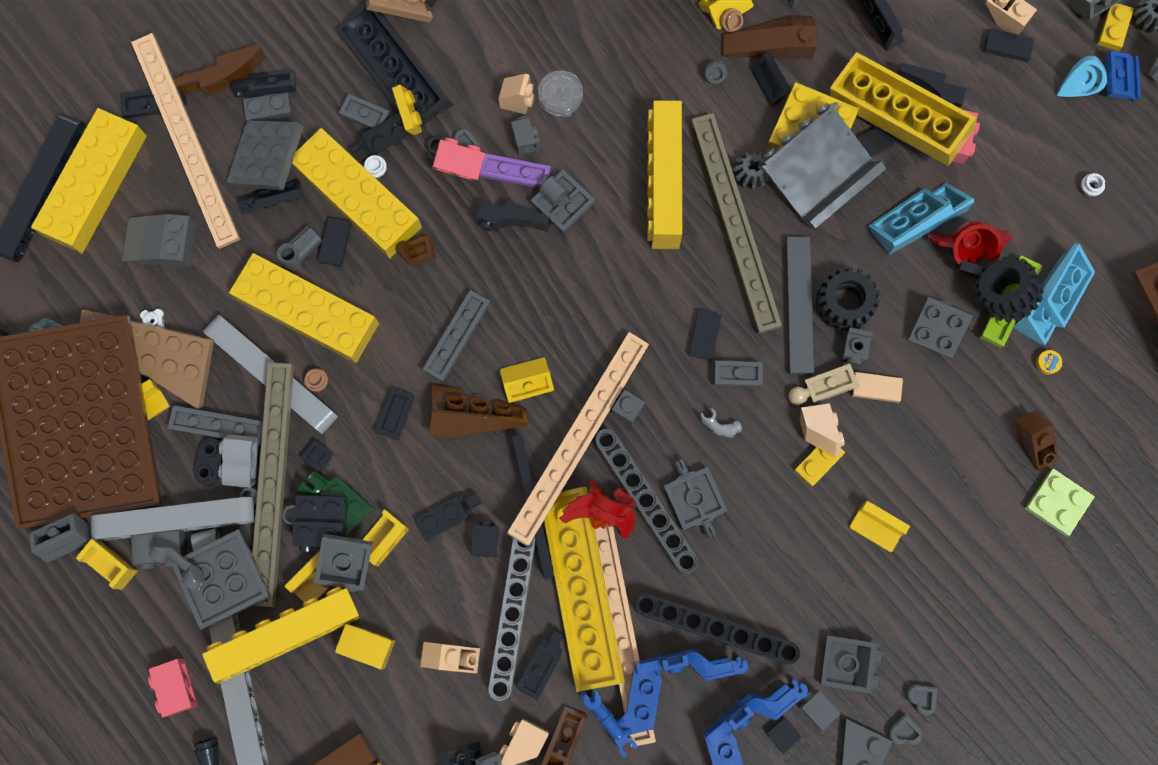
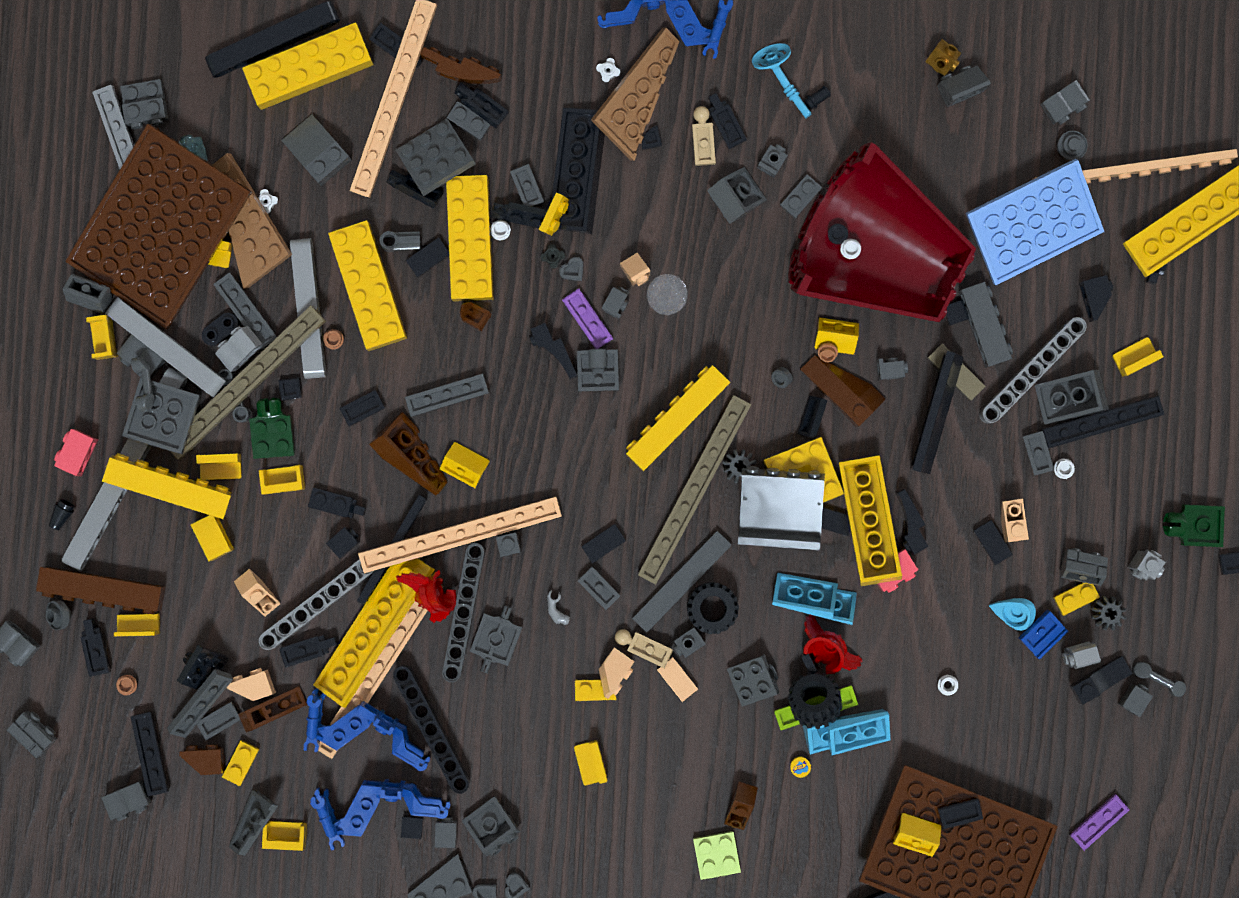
camera: 40 degrees right, 10 degrees up
(316, 517) = (252, 436): black plate -> none
(343, 562) = (243, 476): dark grey plate -> none
(458, 159) = (555, 280): coral brick -> none

